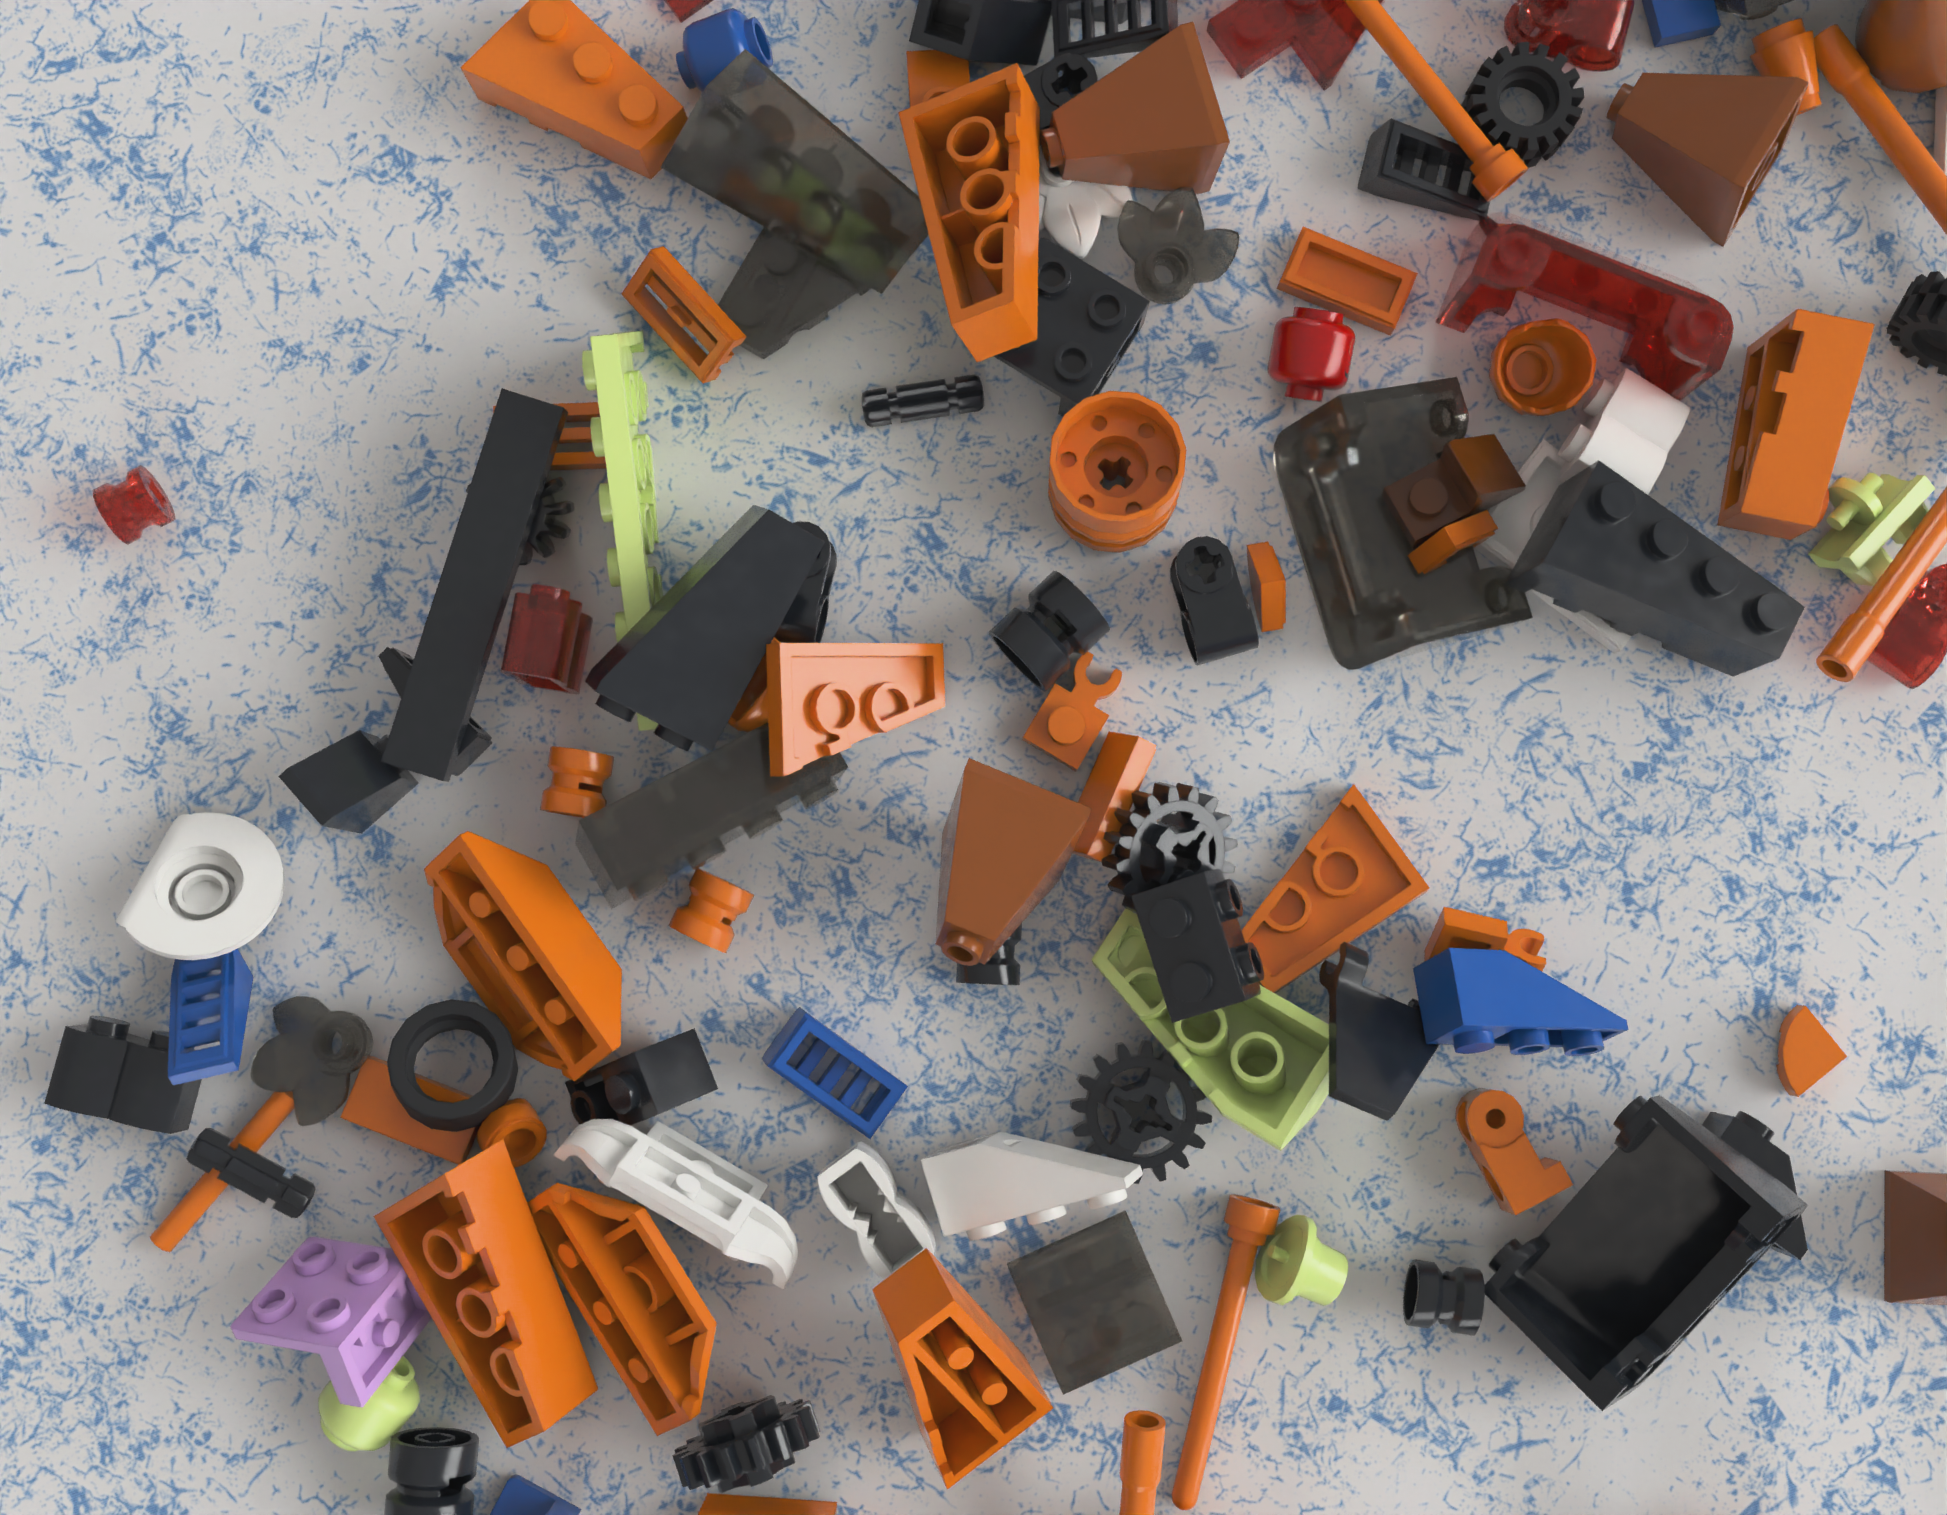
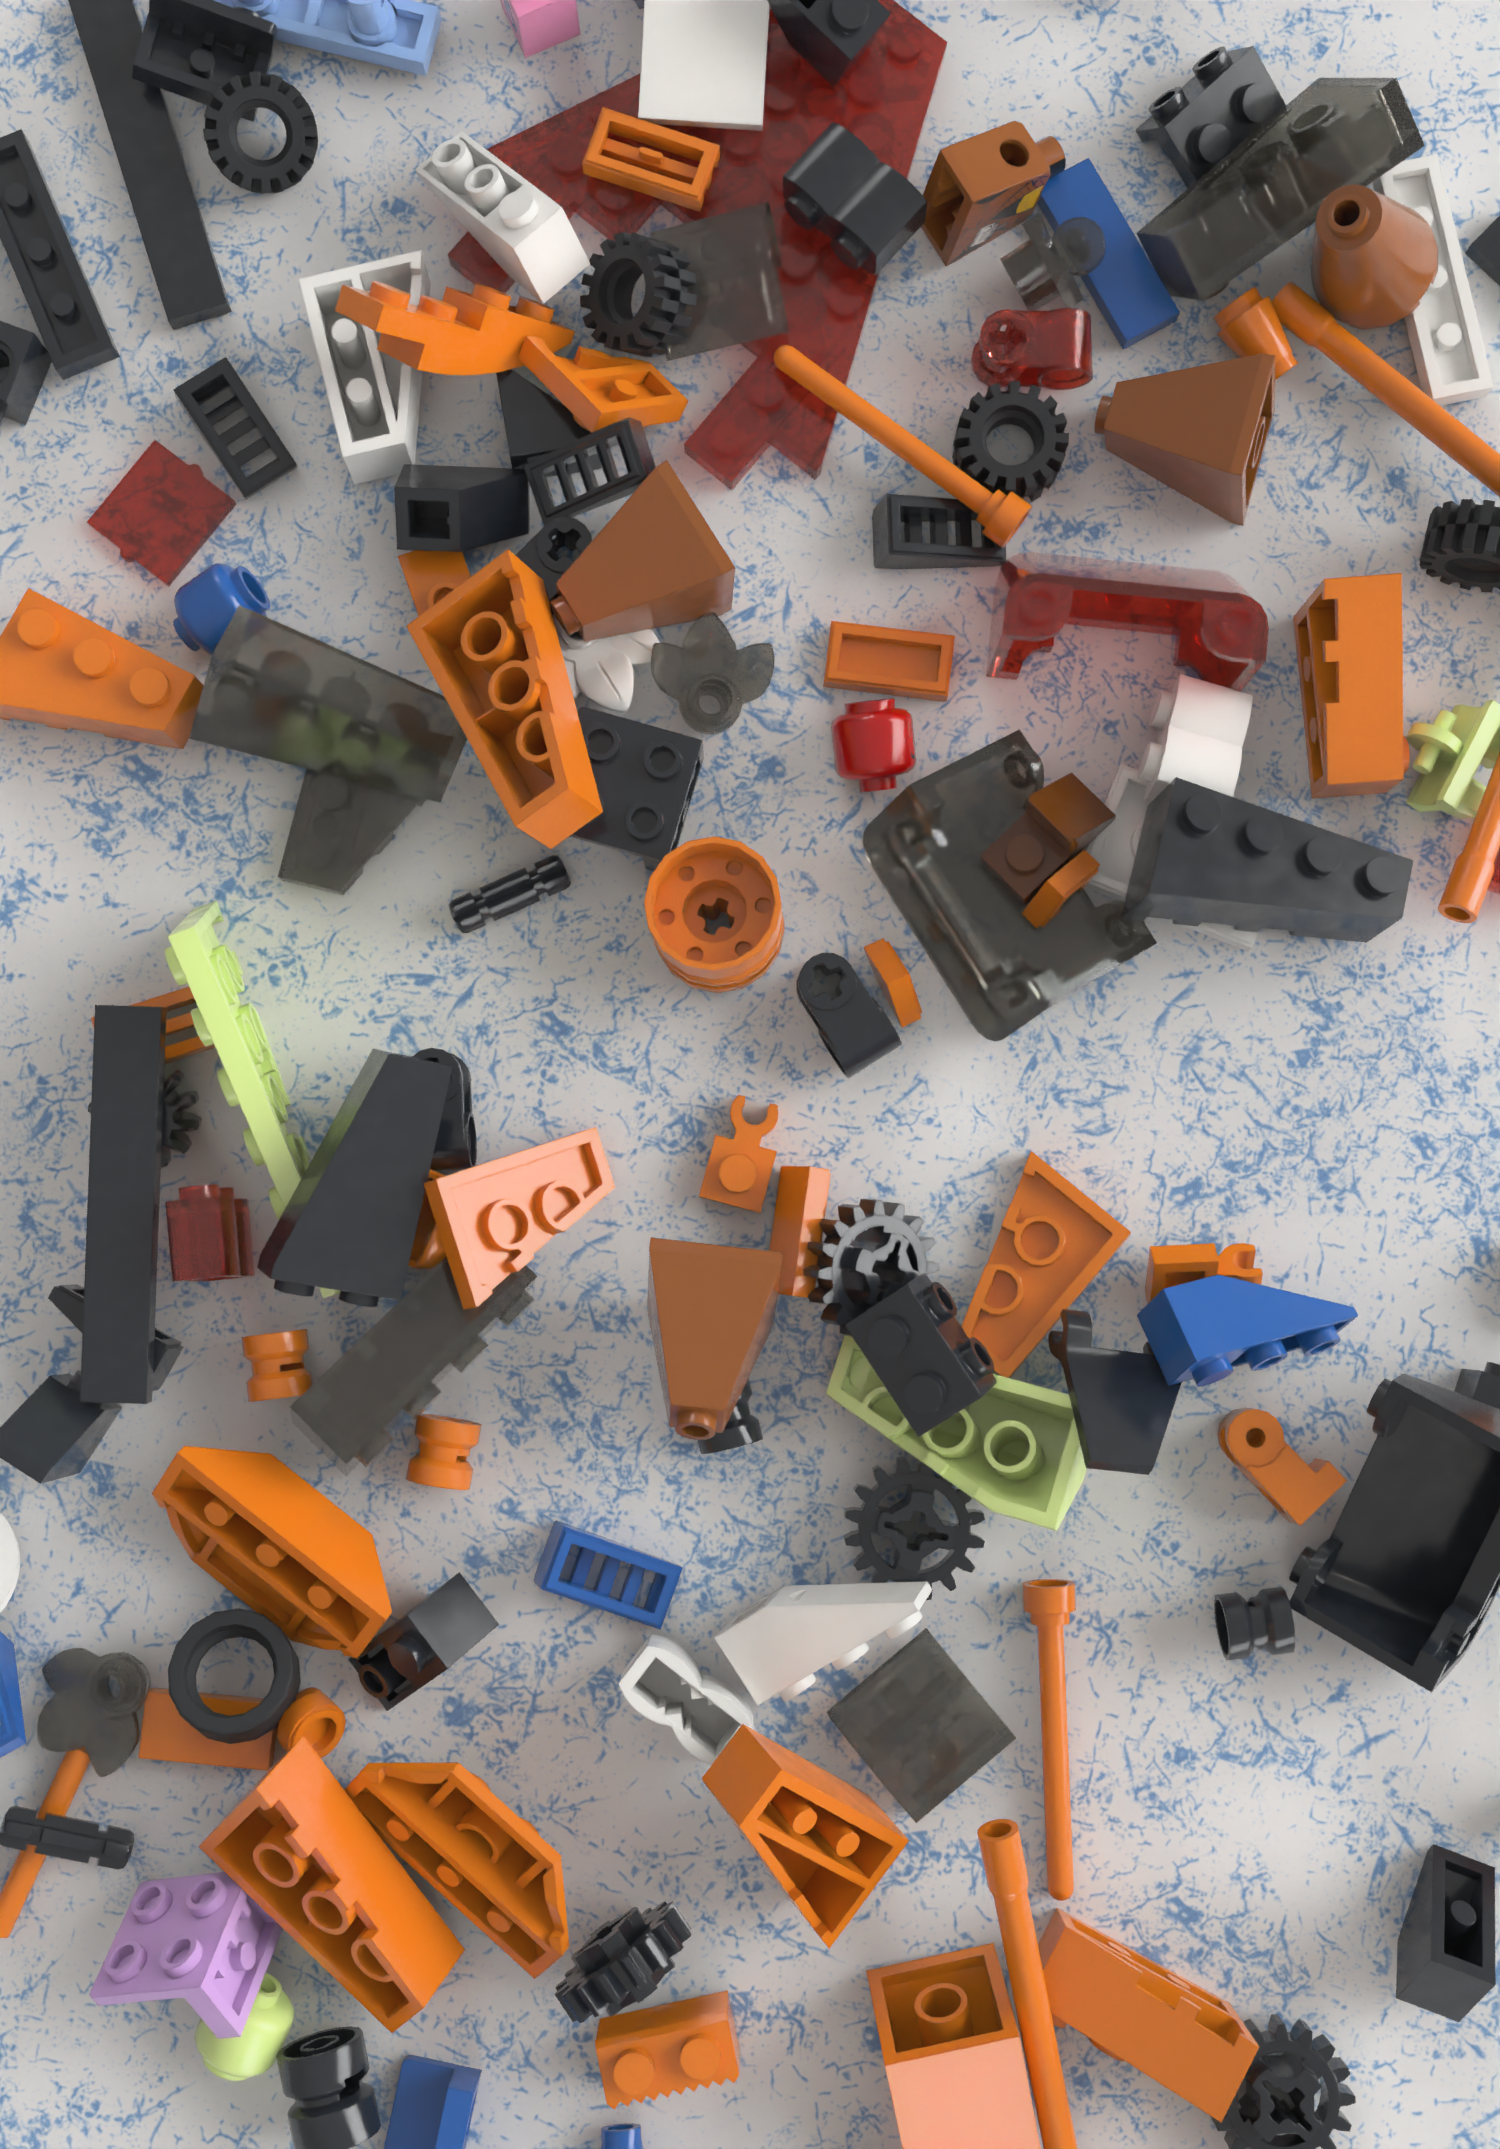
camera: 15 degrees left, 0 degrees up
(687, 307) = (254, 868): orange tile -> none
(688, 1189) = (497, 1731): white plate -> none
(1033, 646) = (681, 1104): black wheel -> none
(1299, 1265) = (1108, 1632): yellowish green piece -> none
(1542, 367) = (1099, 696): orange hair -> none

